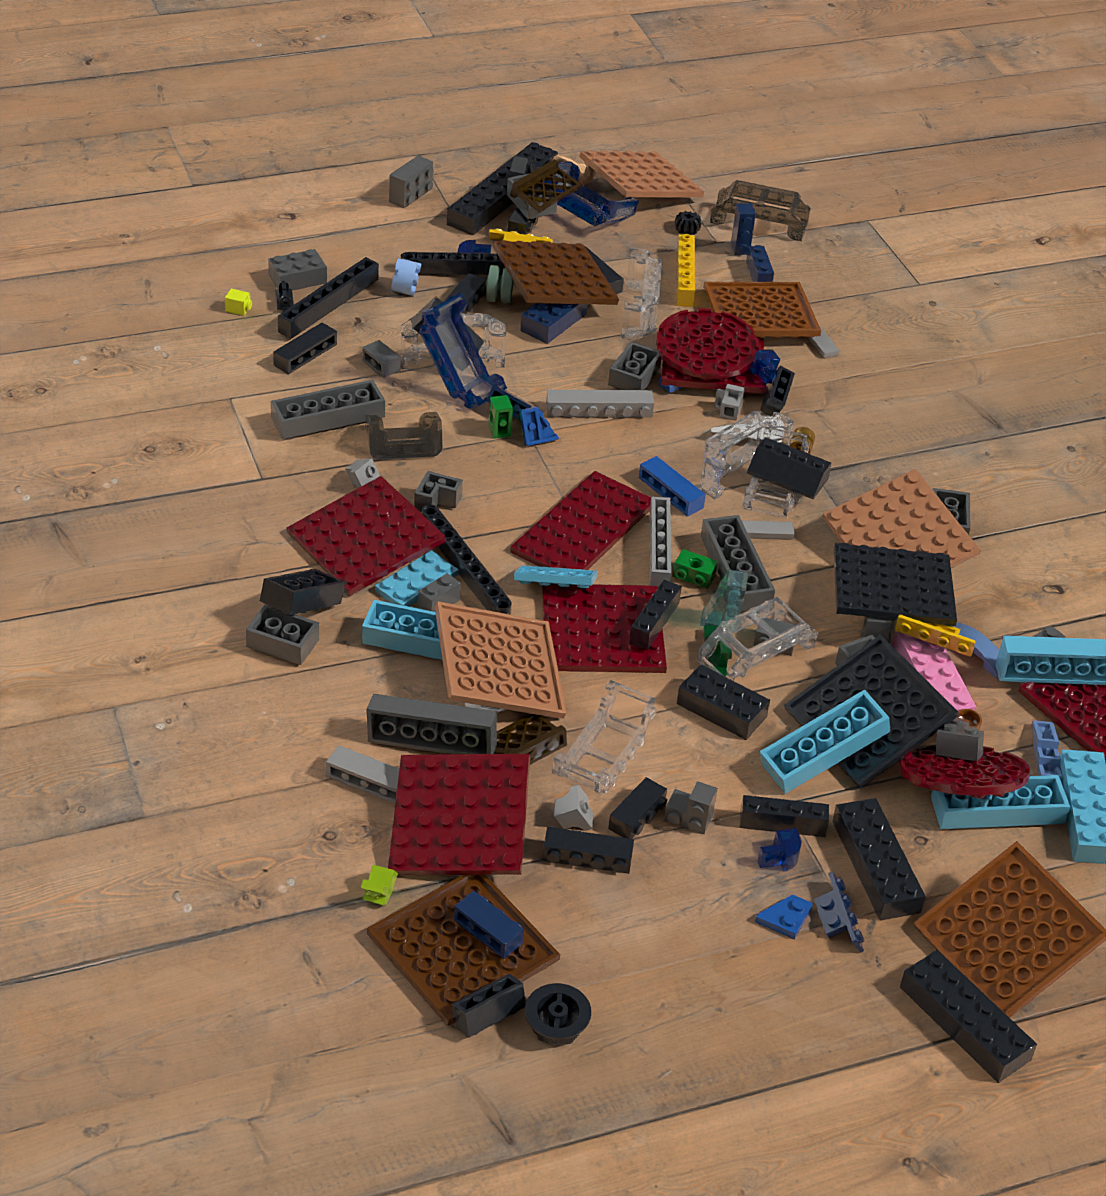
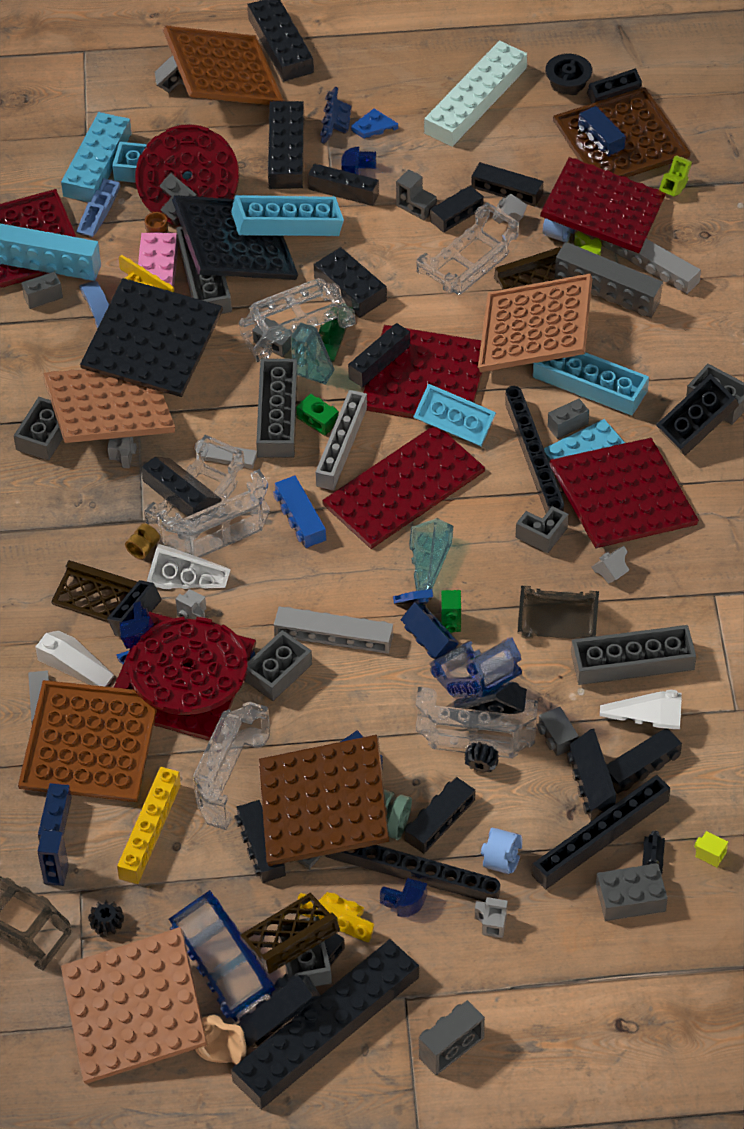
camera: 160 degrees left, 10 degrees up
(304, 373) = (659, 708): none -> white wedge
(349, 336) = (591, 774): none -> black slope
(399, 245) = (492, 916): none -> light grey brick
(535, 471) = (430, 546): none -> clear light blue wedge
(671, 974) = (475, 93): none -> light aqua brick
(817, 363) = (72, 658): none -> white wedge
(821, 415) = (96, 577): none -> dark brown fence

